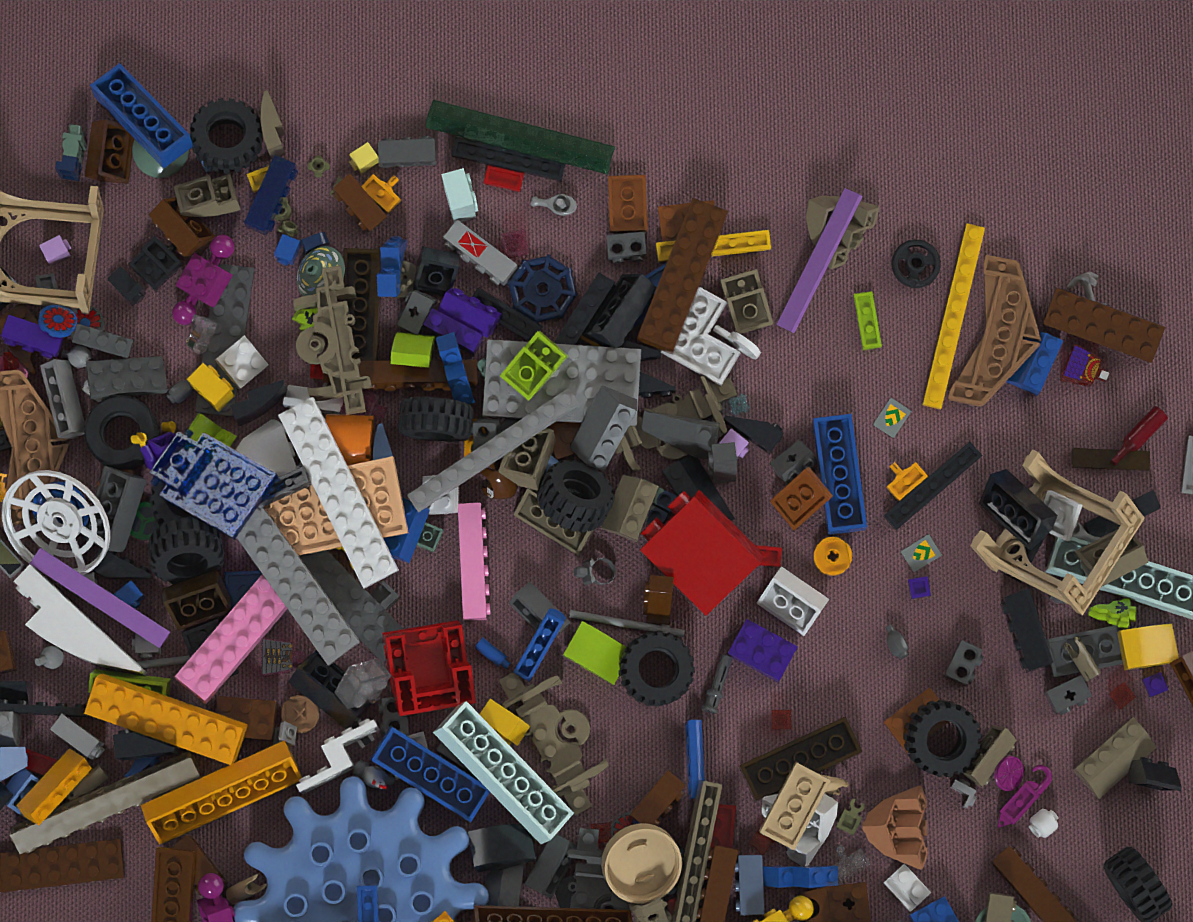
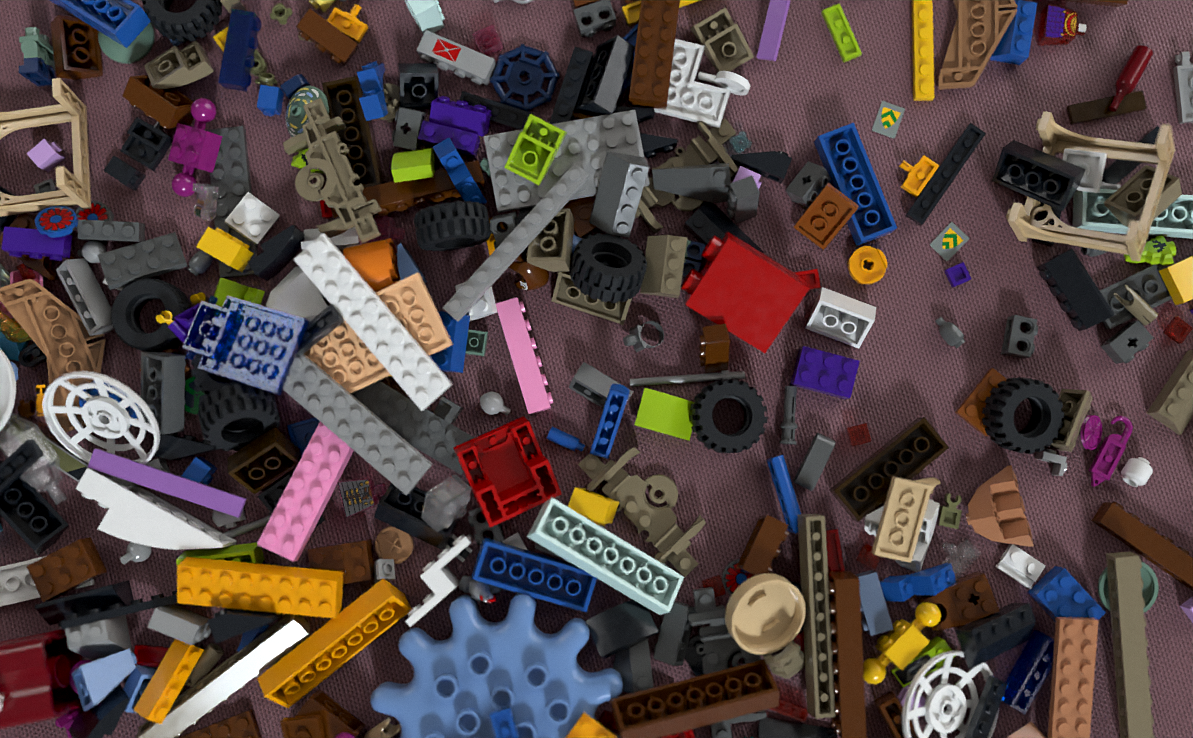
camera: 10 degrees left, 5 degrees up
(430, 601) = (493, 404): none -> light grey piece
(730, 735) = (814, 461): none -> dark grey beam

